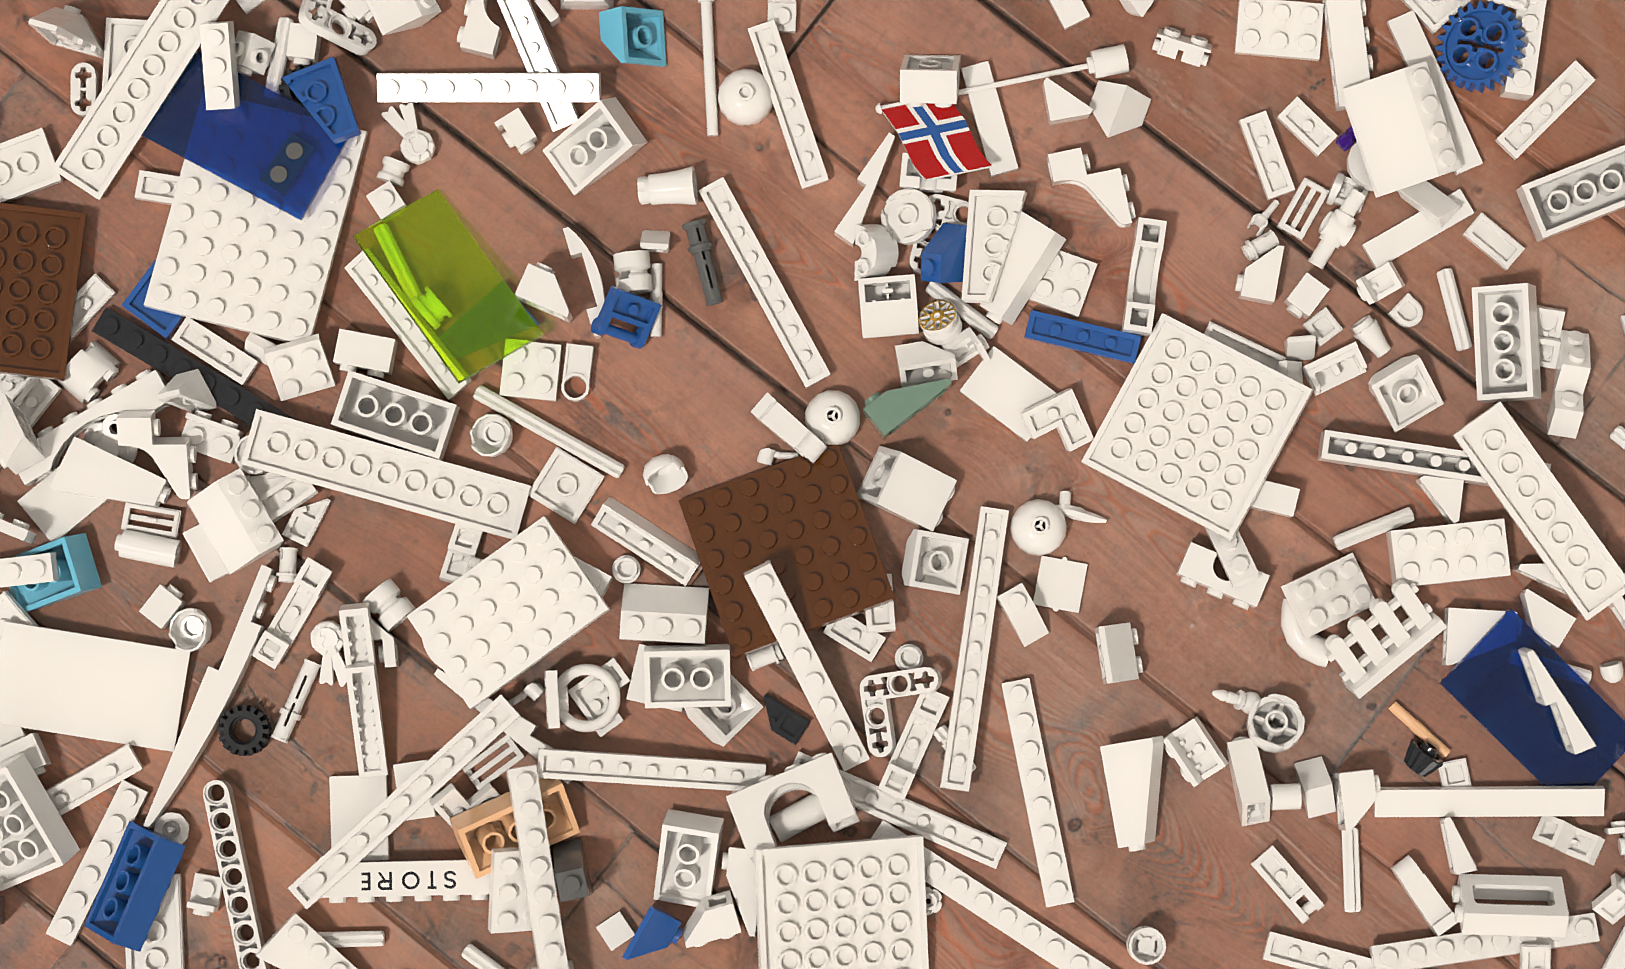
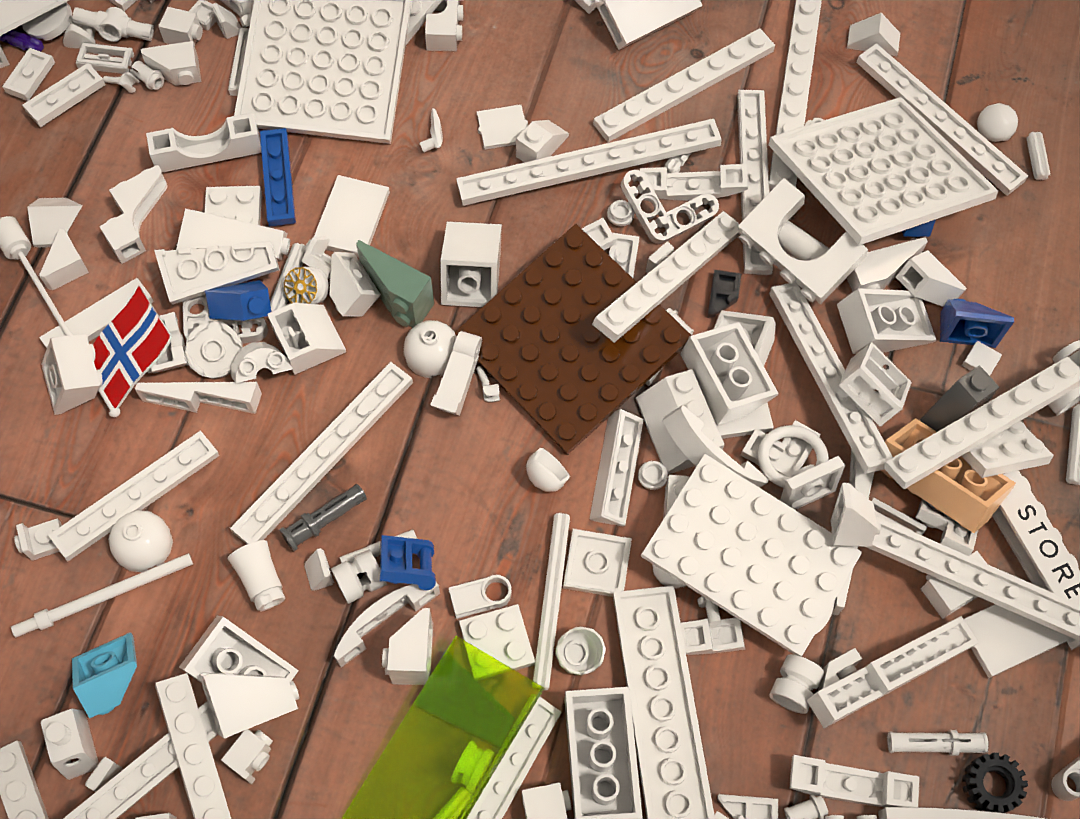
camera: 120 degrees left, 20 degrees down
(328, 641) = (861, 735): white piece -> none
(492, 708) = (854, 519): none -> white slope
(532, 690) = (810, 511): white hand -> none
(558, 144) = (247, 700): none -> white slope
(607, 785) = (866, 374): none -> white window
(635, 604) = (687, 434): none -> white slope
(839, 672) = (659, 256): none -> white tile
(934, 561) = (528, 220): white slope -> none
(1034, 541) = (460, 153): white cylinder -> none
(1059, 412) = (356, 166): white plate -> none
(1117, 653) = (544, 61): white slope -> none

